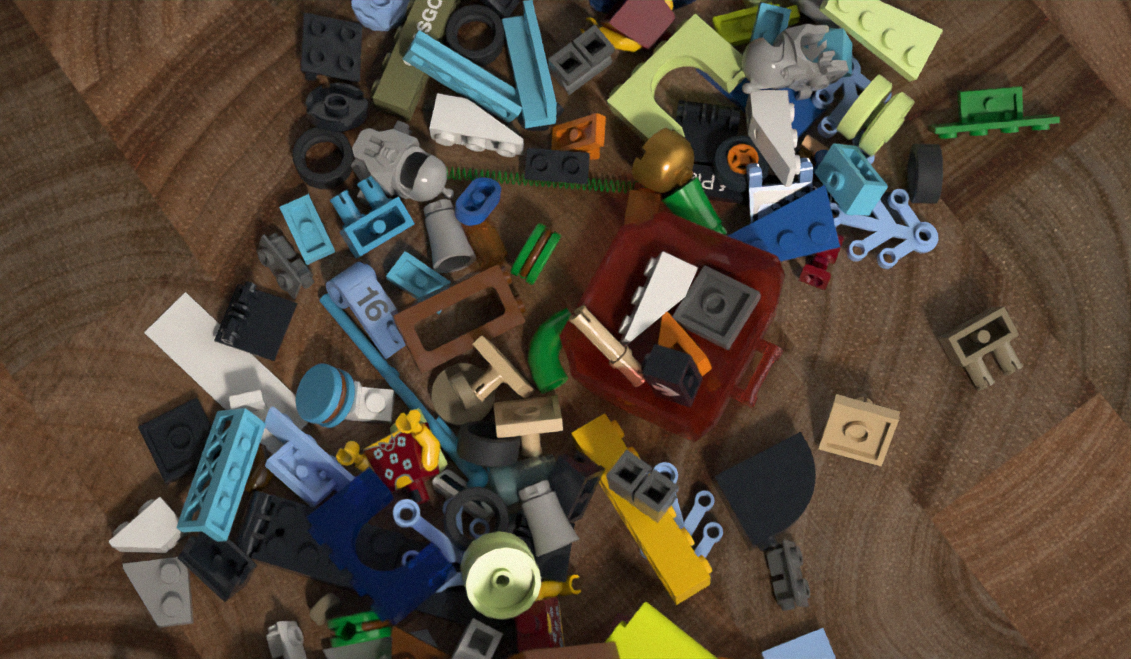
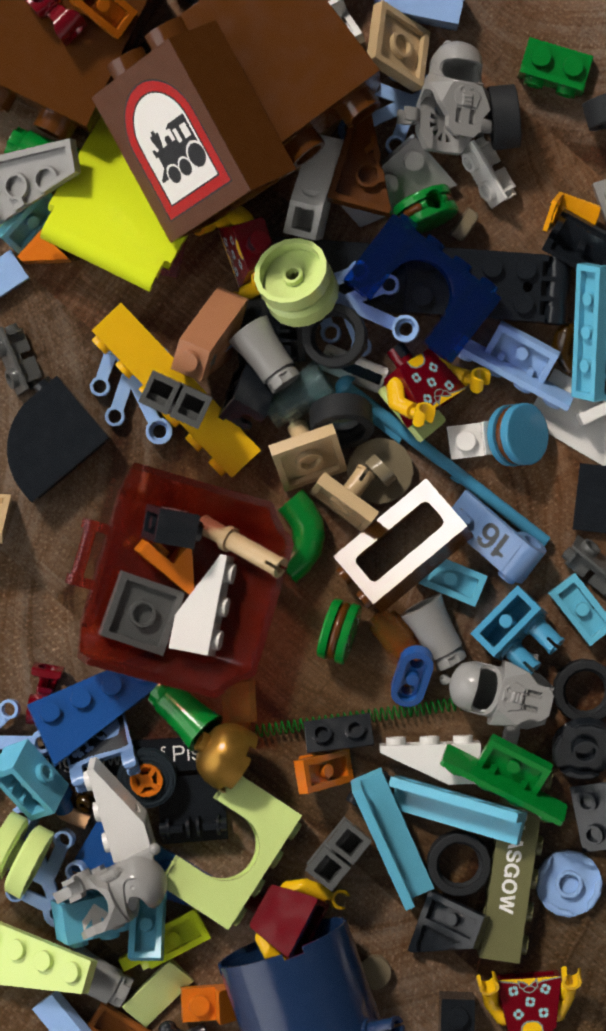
camera: 170 degrees right, 15 degrees up
(208, 599) = (580, 207): none -> light orange bracket
(411, 91) = (510, 774): none -> green bracket
(595, 548) = (206, 340): none -> nougat slope

